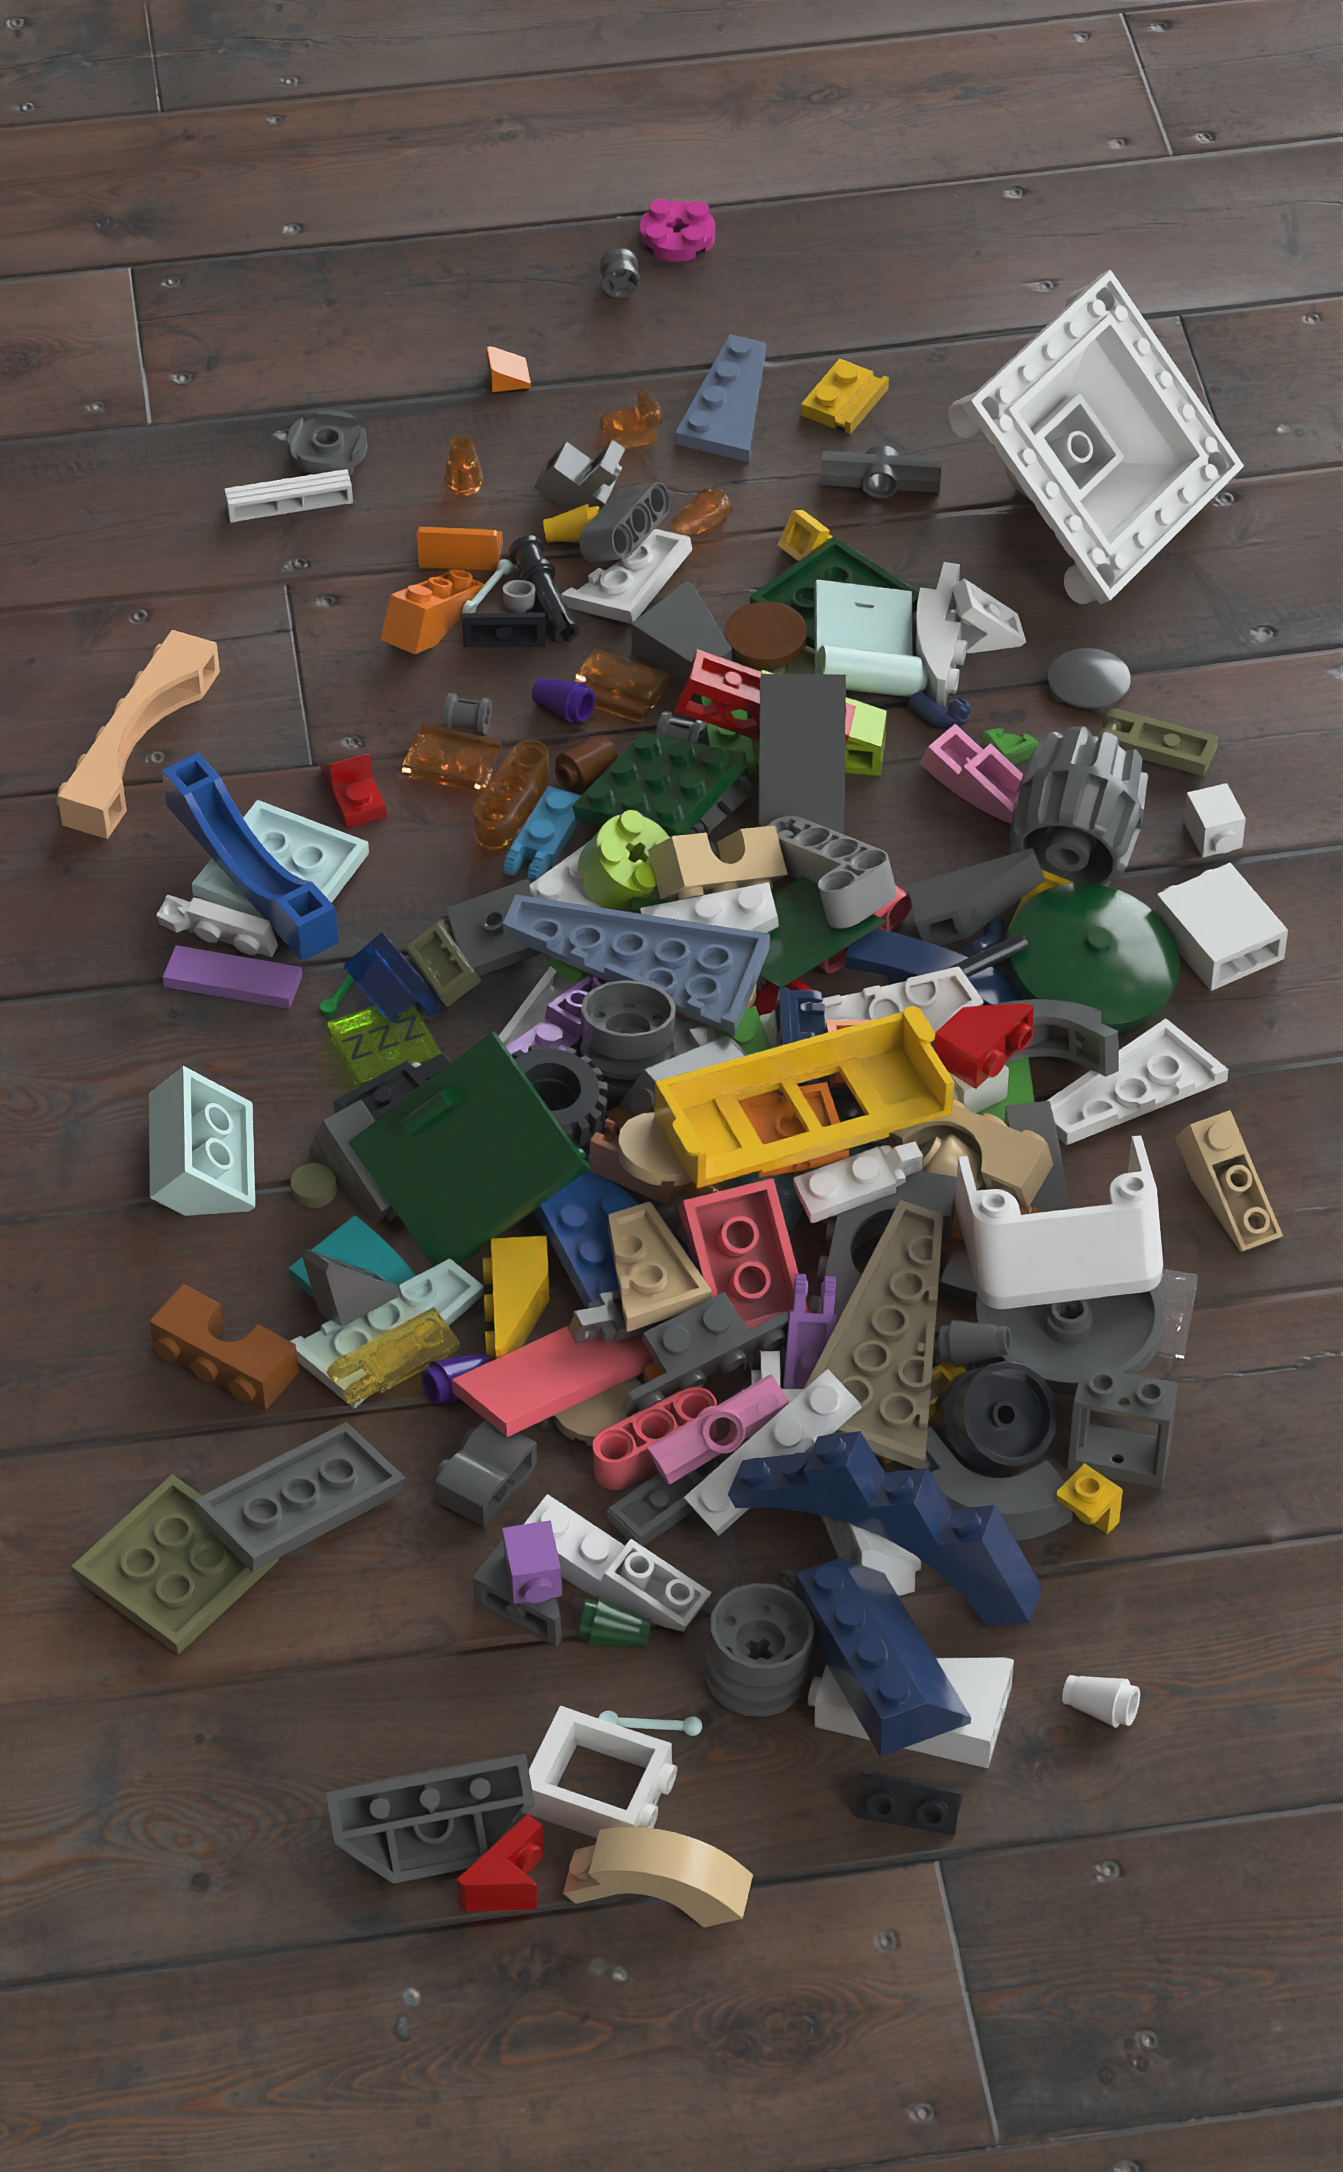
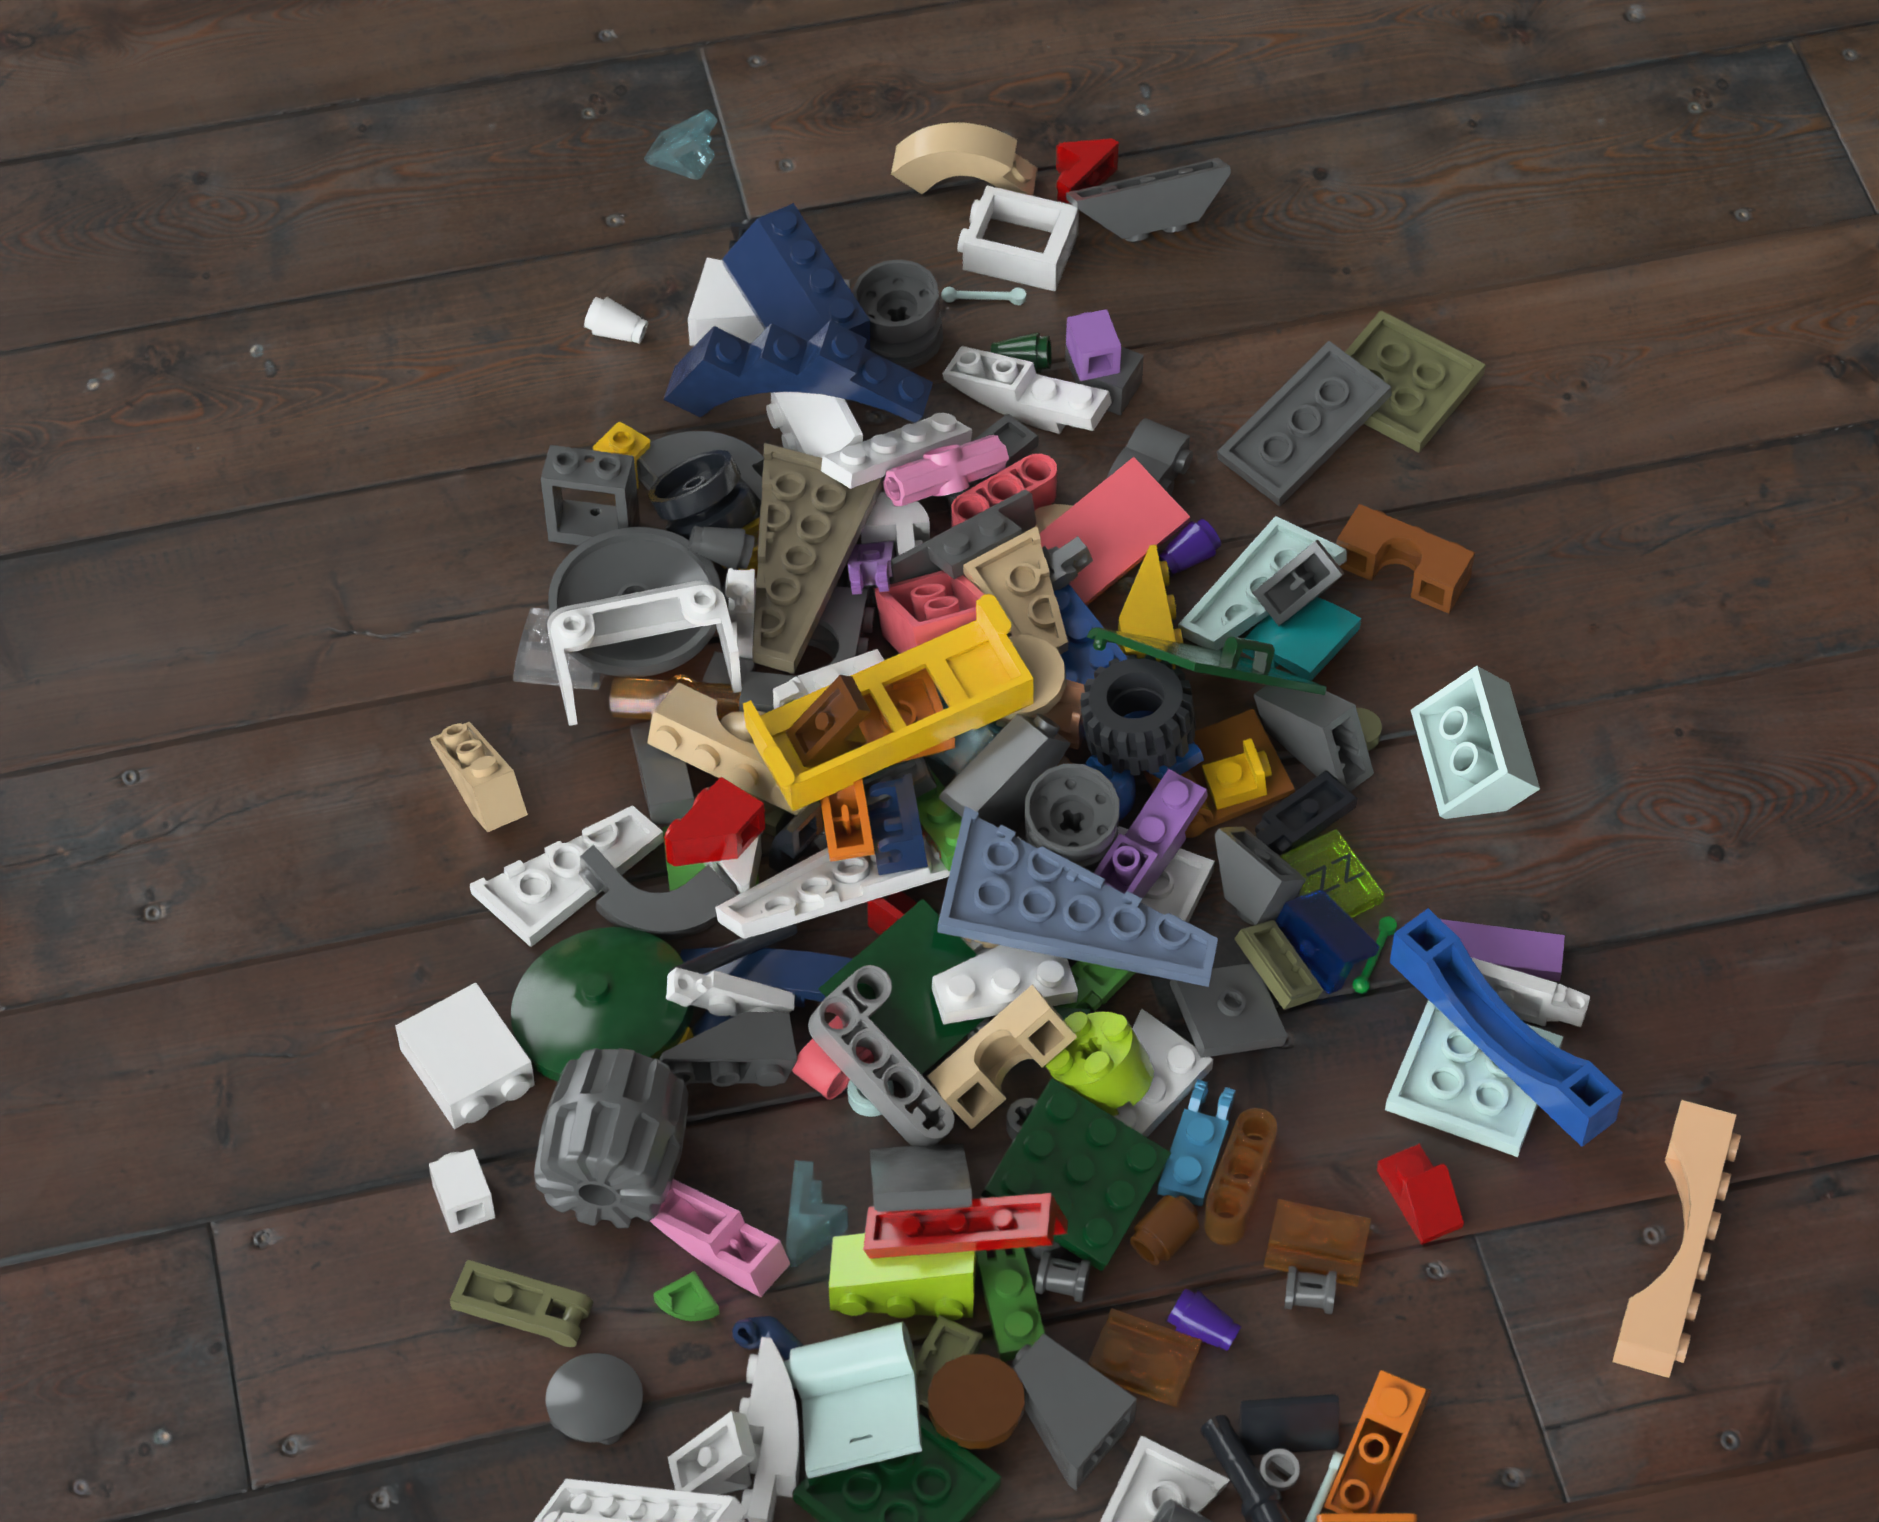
camera: 175 degrees right, 5 degrees up
(396, 1355) = (1247, 542): clear yellow hinge -> none
(447, 1017) = (1254, 875): none -> dark grey slope
(863, 1072) = (830, 723): none -> reddish brown slope
(899, 783) = (810, 1222): none -> clear light blue slope
(953, 1277) = (742, 601): none -> white hinge
(977, 927) = (725, 993): none -> white hinge
(1021, 1942) = (684, 146): none -> clear light blue slope

